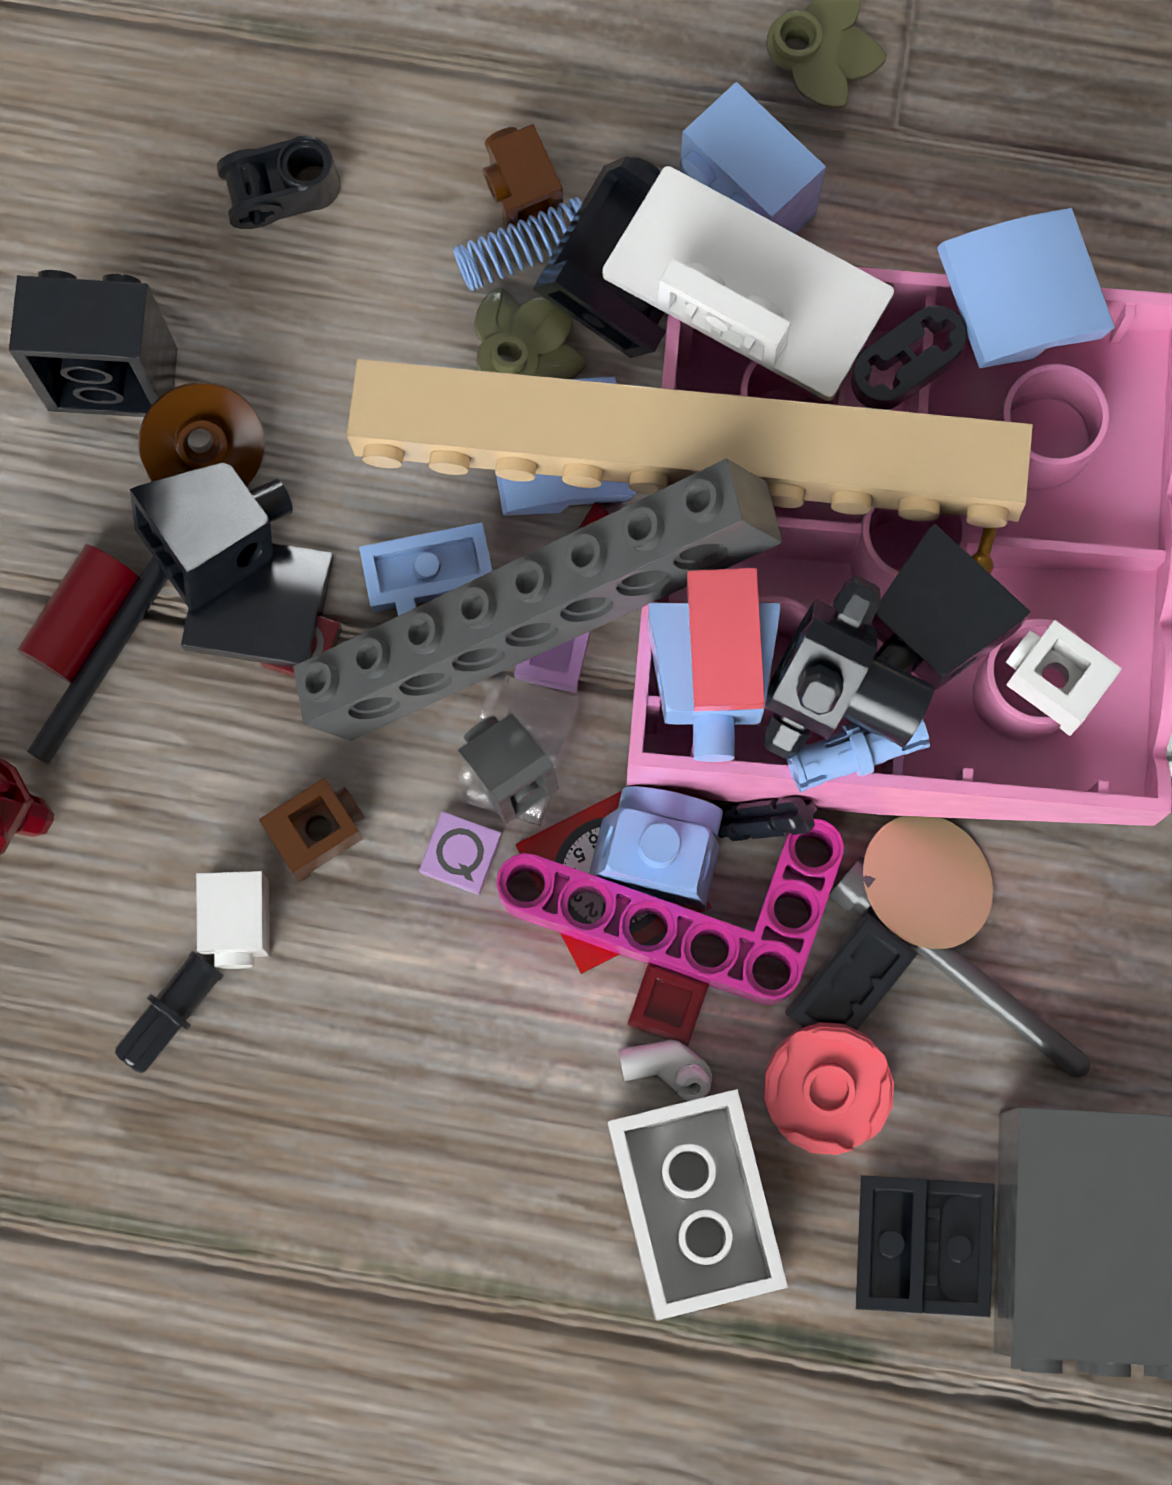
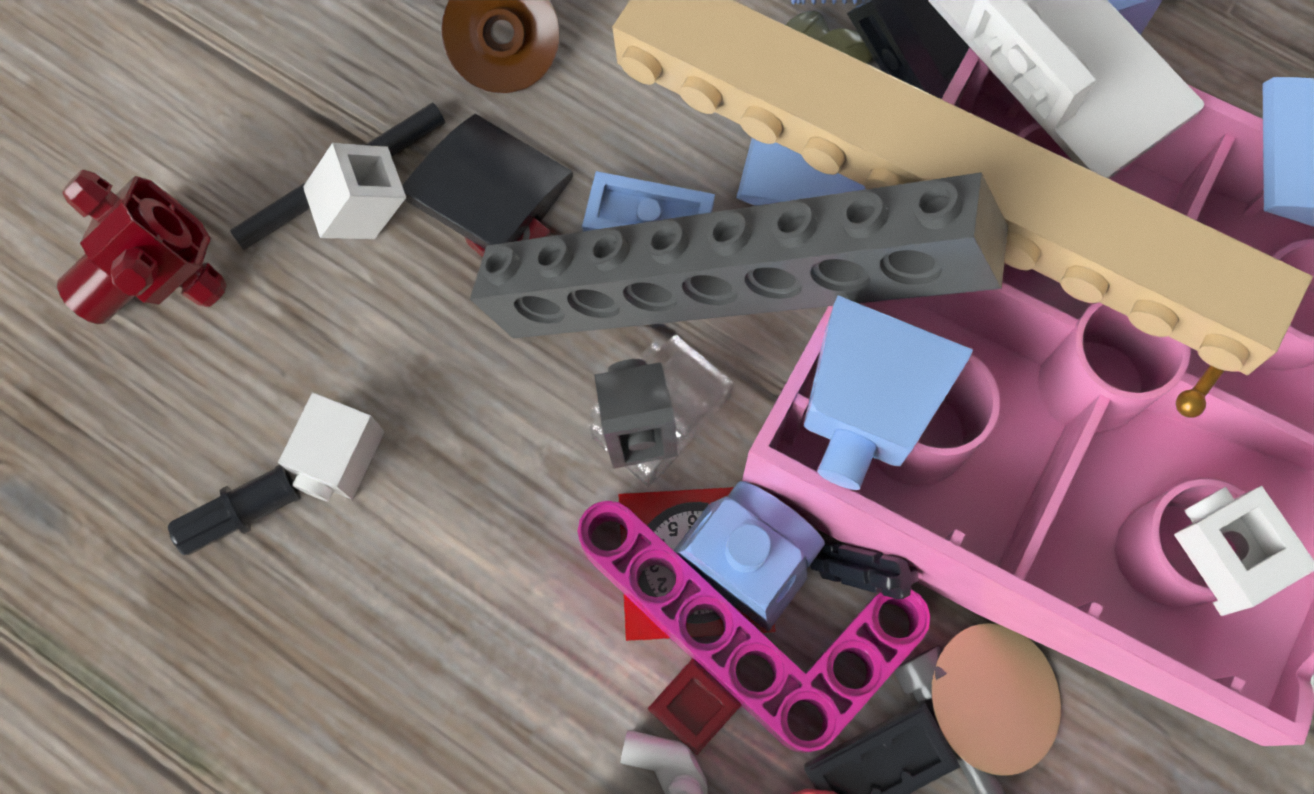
camera: 25 degrees right, 5 degrees down
(78, 613) = (348, 117): dark red brick -> none
(138, 665) = (354, 191): none -> white brick
(208, 528) = (472, 101): torso -> none
(291, 820) = (421, 388): reddish brown brick -> none
(460, 853) = (564, 479): lavender tile -> none
(557, 667) = (728, 341): lavender plate -> none
(725, 639) = (901, 361): coral tile -> none
(834, 675) = (1006, 444): black piece -> none
(847, 753) = (992, 533): light blue pin -> none
(899, 346) = (1189, 162): black beam -> none
(943, 612) = (1133, 434): black torso -> none

